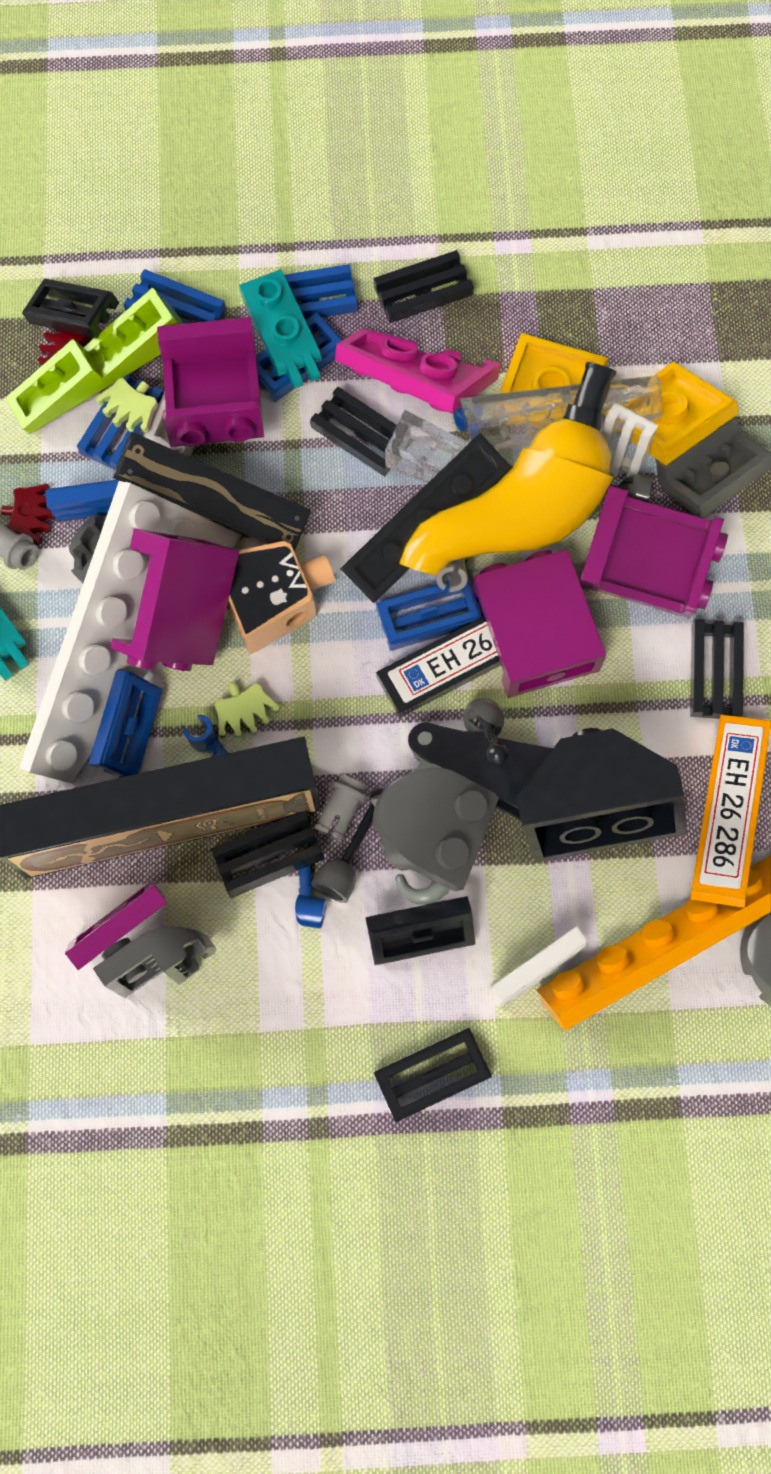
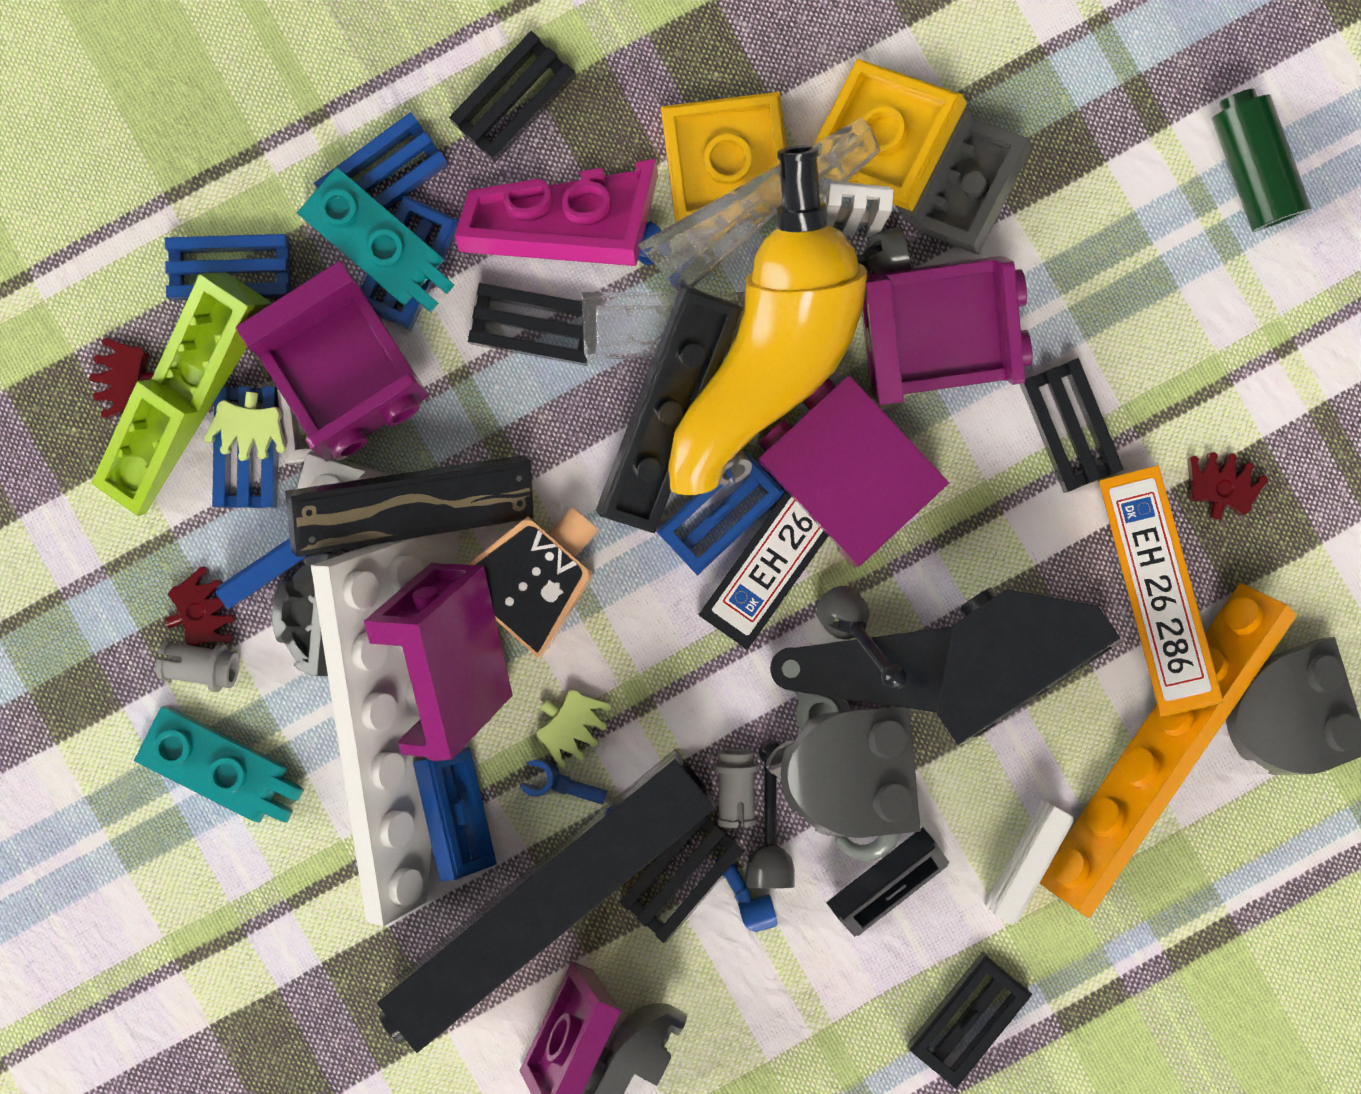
camera: 30 degrees left, 15 degrees up
(65, 314) = (145, 334): black tile -> none

